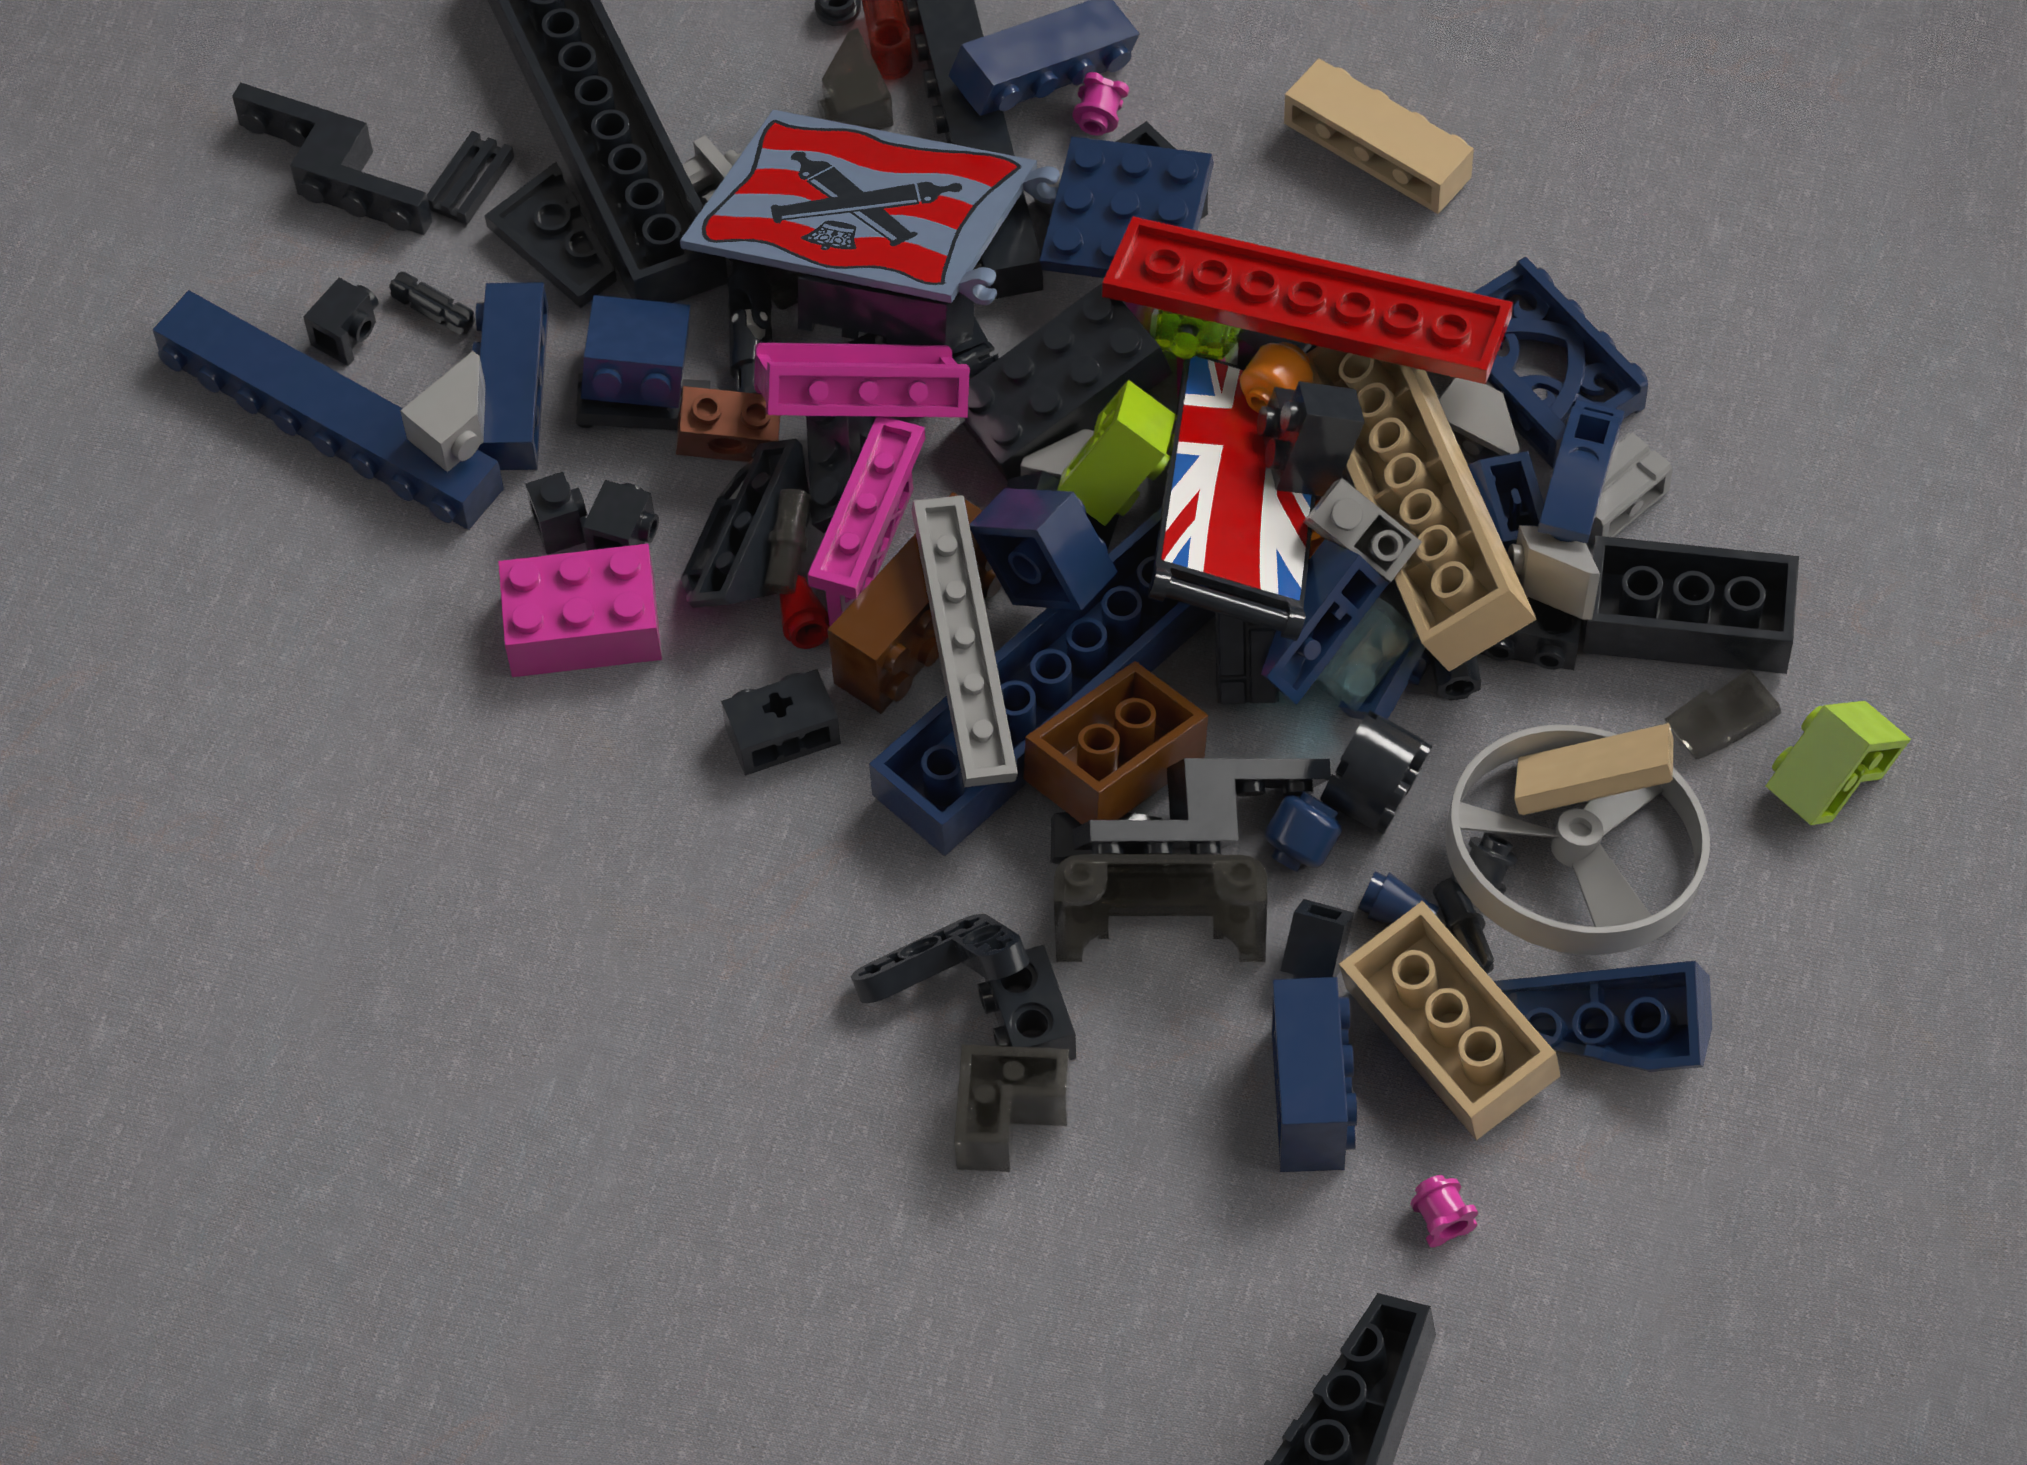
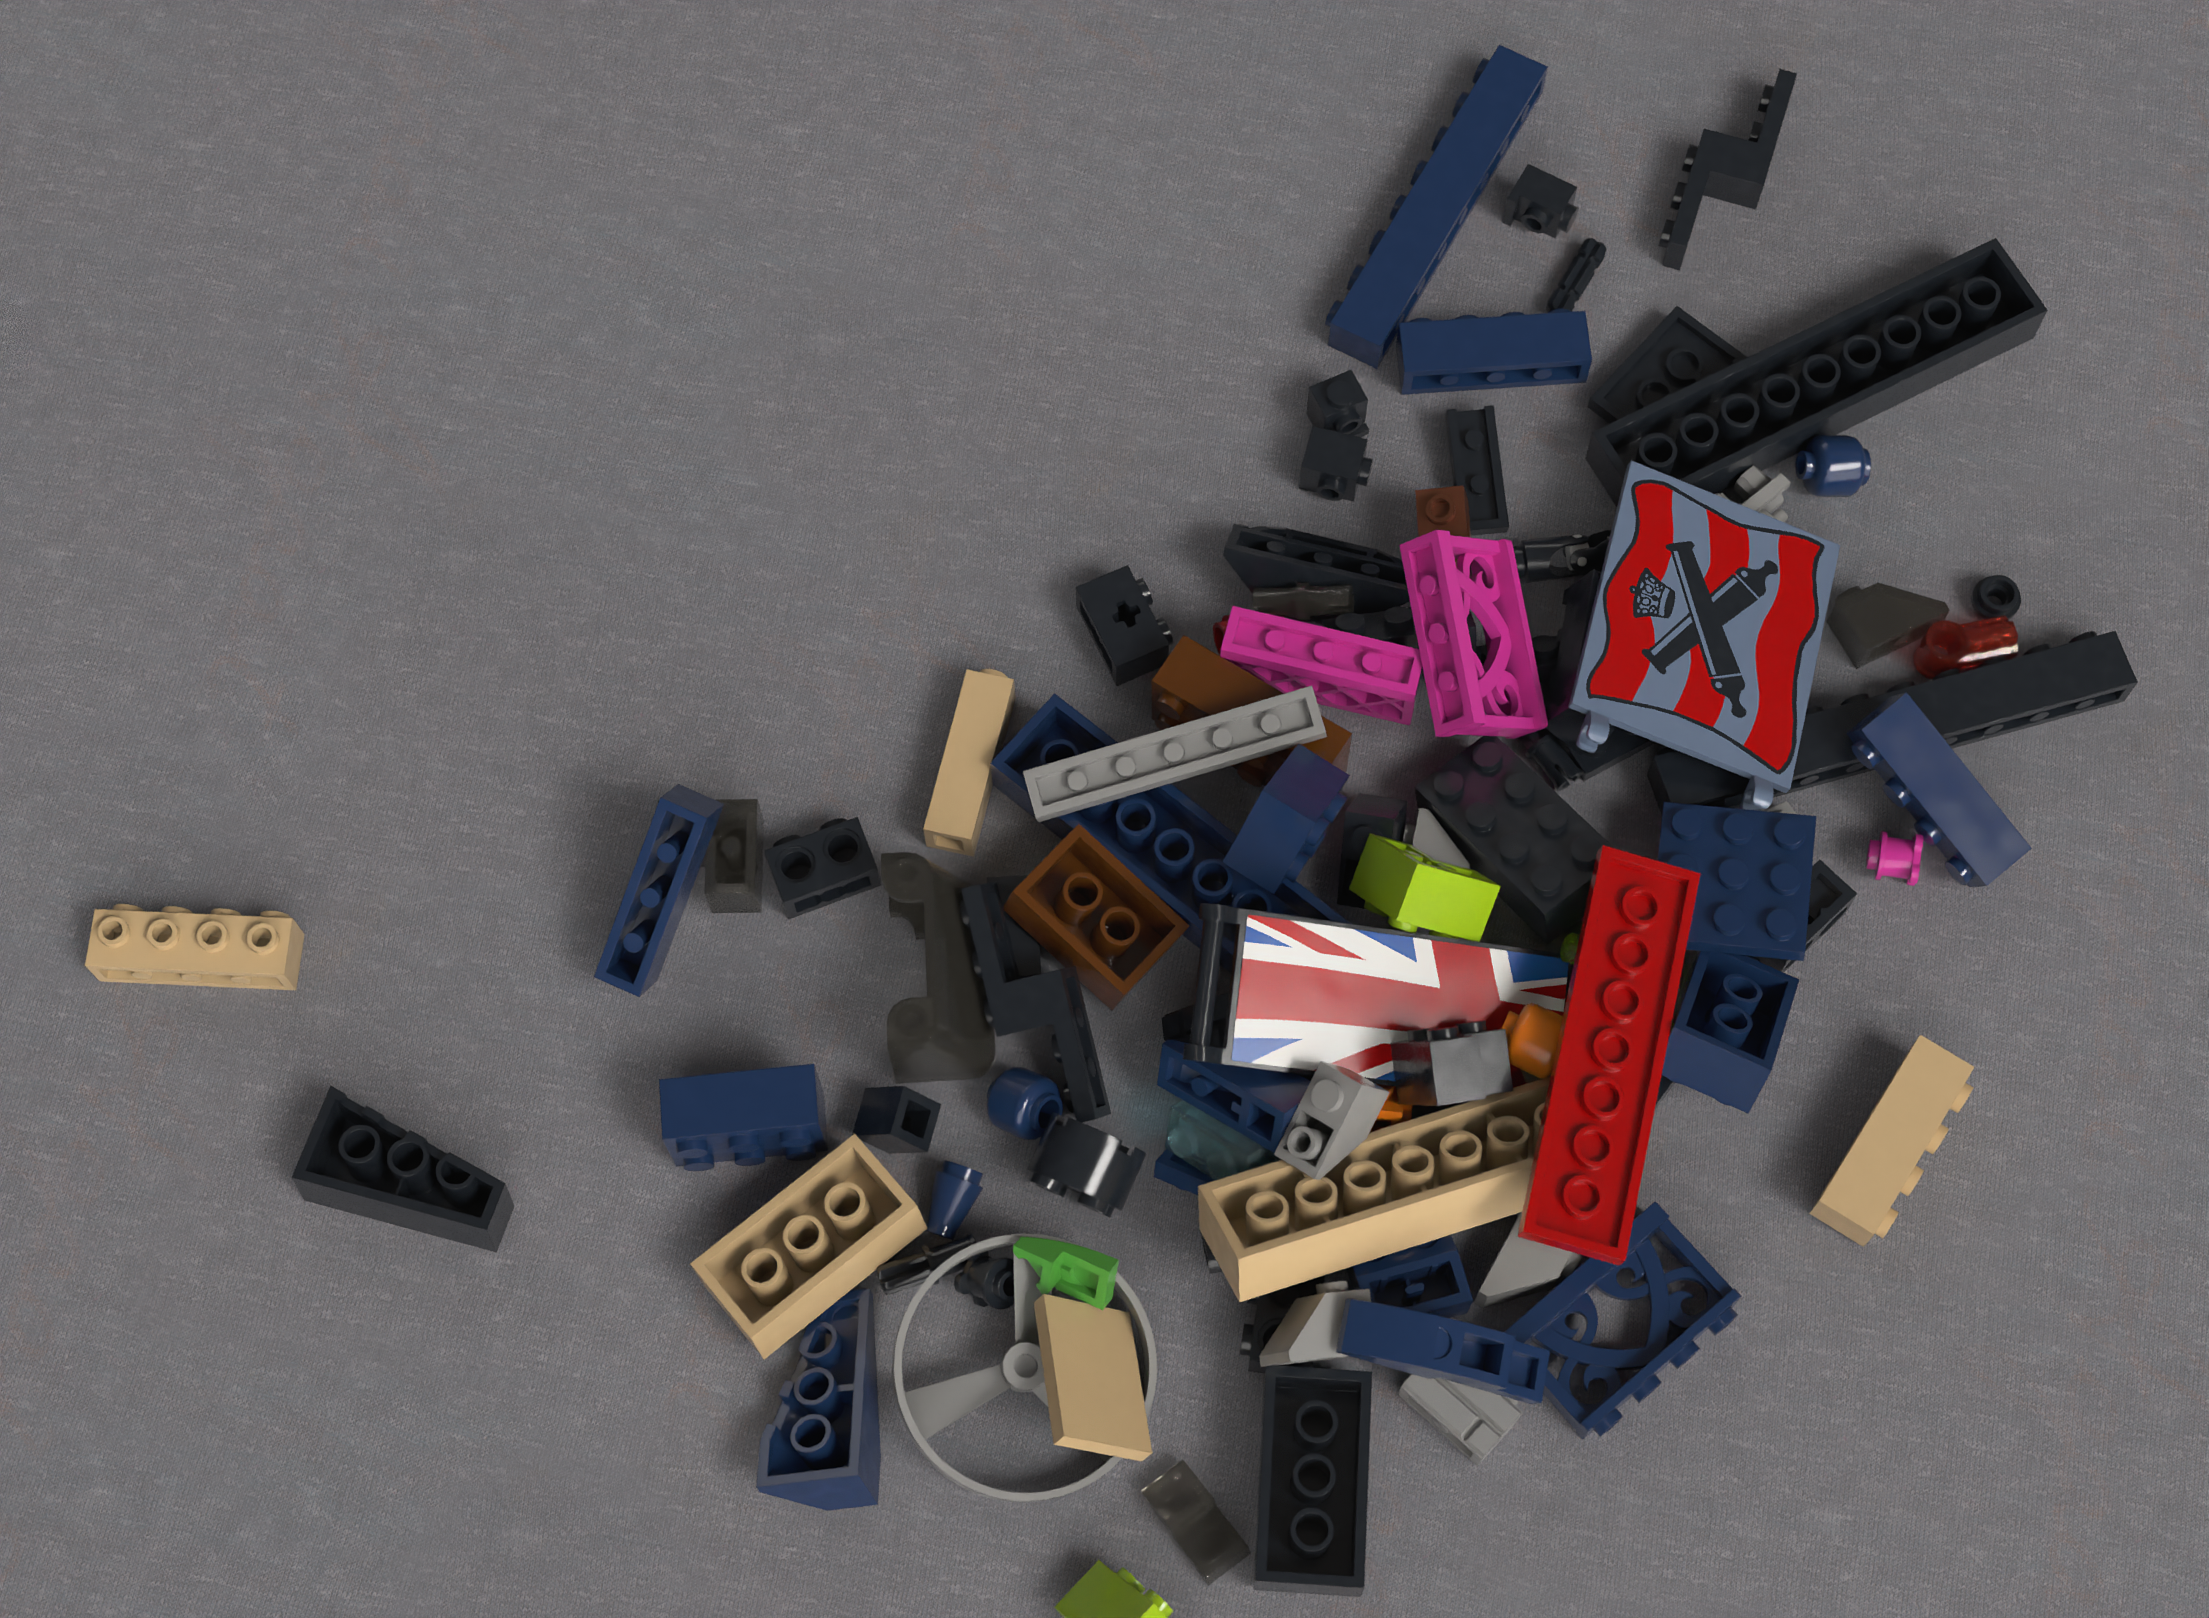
camera: 85 degrees right, 10 degrees up
(449, 414) = (1416, 294): light grey slope -> none
(462, 174) = (1732, 285): black tile -> none
(579, 610) = (1230, 440): dark pink brick -> none
(635, 351) = (1517, 448): dark blue brick -> none
(683, 106) = (1833, 466): none -> dark blue head
(920, 867) = (965, 769): none -> tan brick
(974, 940) = (884, 798): black beam -> none
(1064, 1132) = (658, 890): none -> dark blue brick
(1283, 214) = (1728, 1027): none -> dark blue brick
(1443, 1209) = (620, 1252): dark pink brick -> none
(1488, 777) = (1070, 1268): none -> bright green slope

